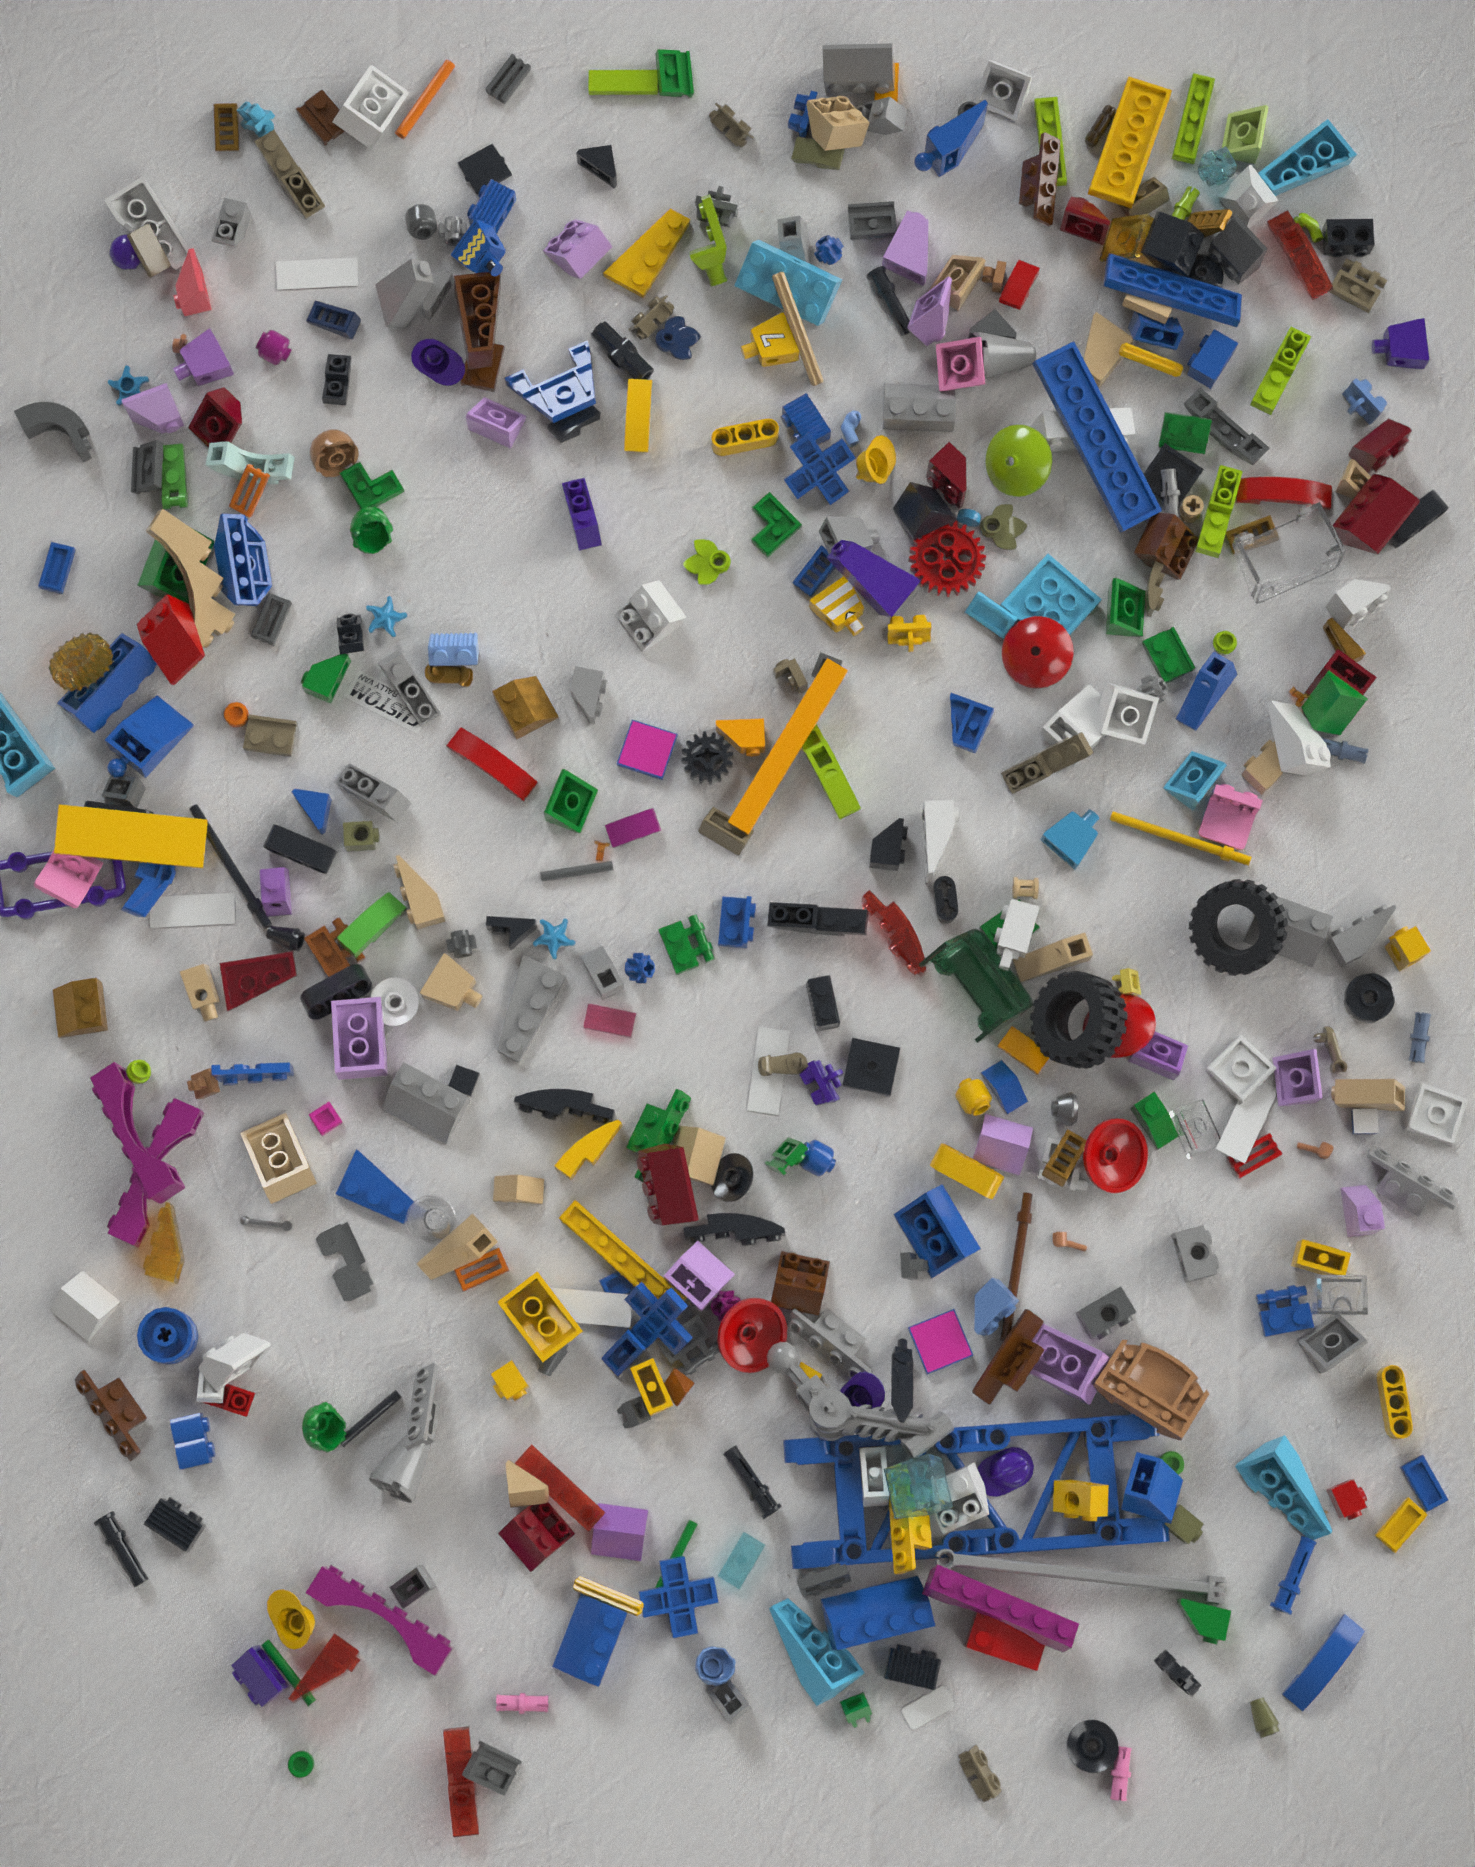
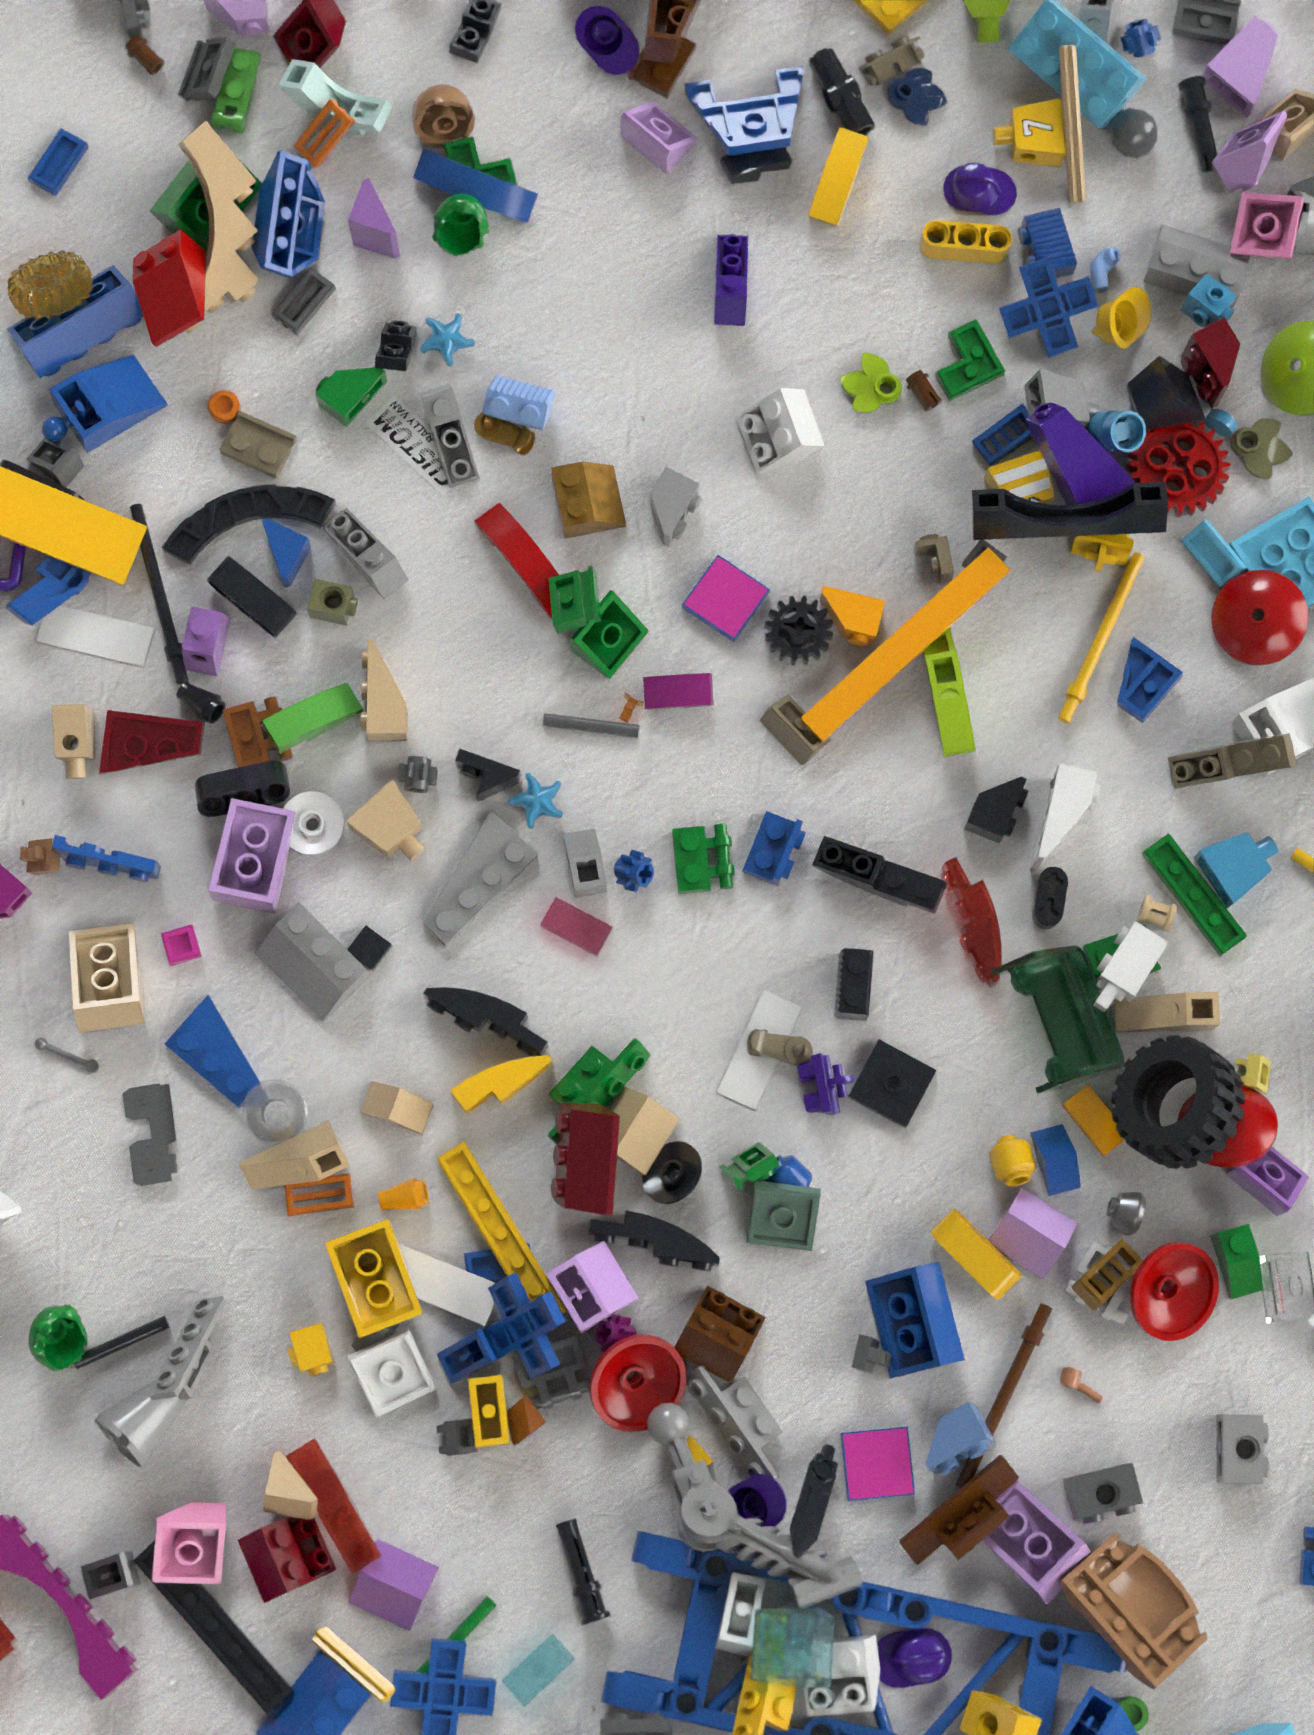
camera: 15 degrees right, 0 degrees up
(96, 469) = (138, 48): none -> reddish brown pin
(273, 784) = (246, 506): none -> black tile
(305, 549) = (370, 223): none -> medium lavender slope
(360, 496) = (490, 191): none -> blue slope
(465, 1546) = (190, 1544): none -> bright pink slope
(498, 1599) = (222, 1637): none -> black tile
(538, 783) = (574, 599): none -> green plate
(545, 1251) = (405, 1196): none -> light orange cone
(572, 1380) = (391, 1372): none -> white tile
(744, 395) = (979, 189): none -> dark purple piece
(746, 555) = (923, 390): none -> reddish brown pin
(821, 1184) = (783, 1215): none -> sand green tile
(844, 321) = (1134, 132): none -> dark grey hair
(895, 545) = (1118, 430): none -> dark azure wheel
(921, 743) = (1077, 691): none -> yellow bar
(922, 602) = (1130, 511): none -> black arch
(935, 433) = (1209, 302): none -> dark azure brick
(1048, 866) = (1194, 894): none -> green tile

